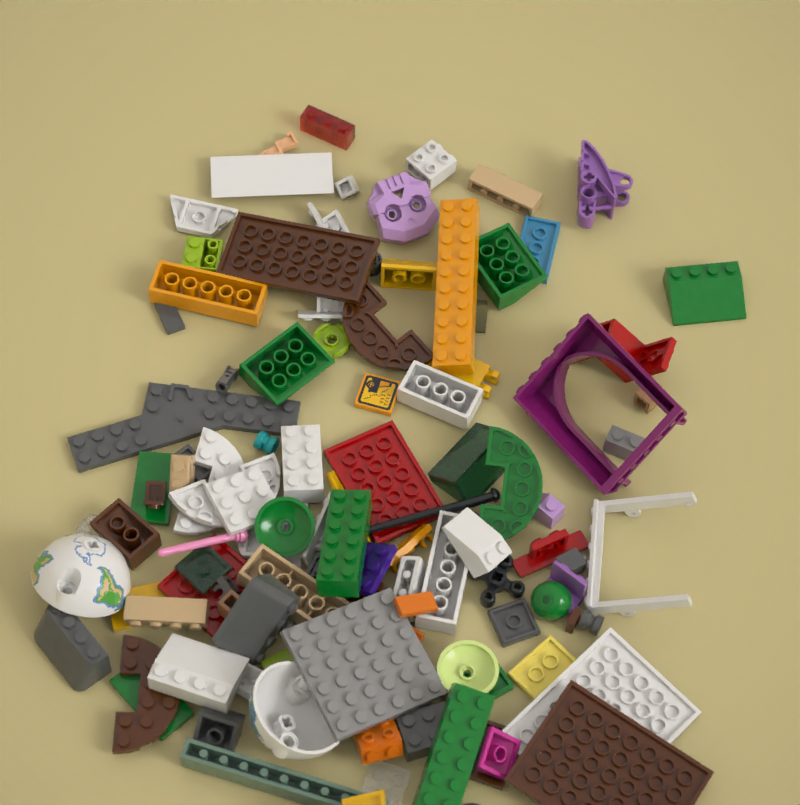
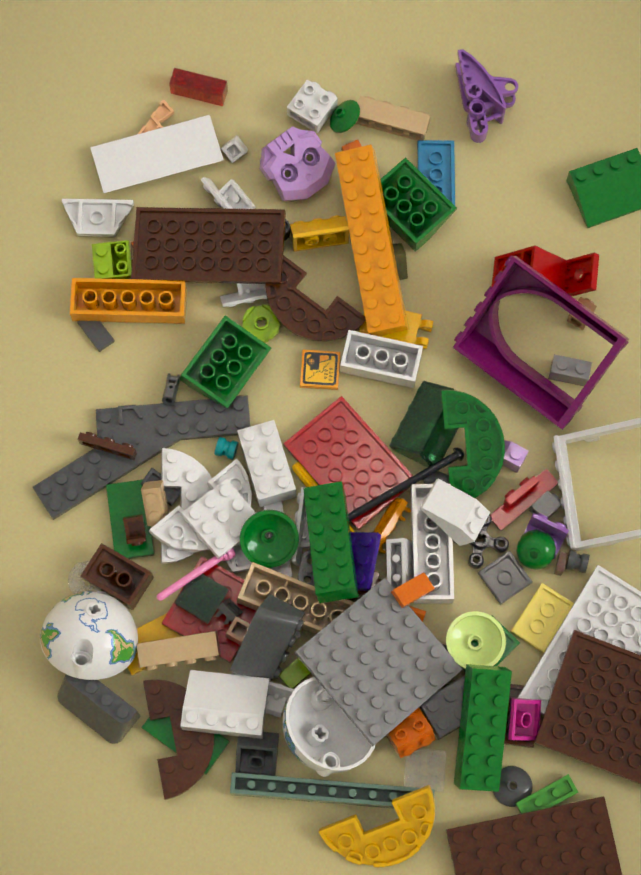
camera: 10 degrees left, 15 degrees up
(150, 414) = (107, 445): none -> reddish brown plate
(460, 179) = (344, 116): none -> green dish

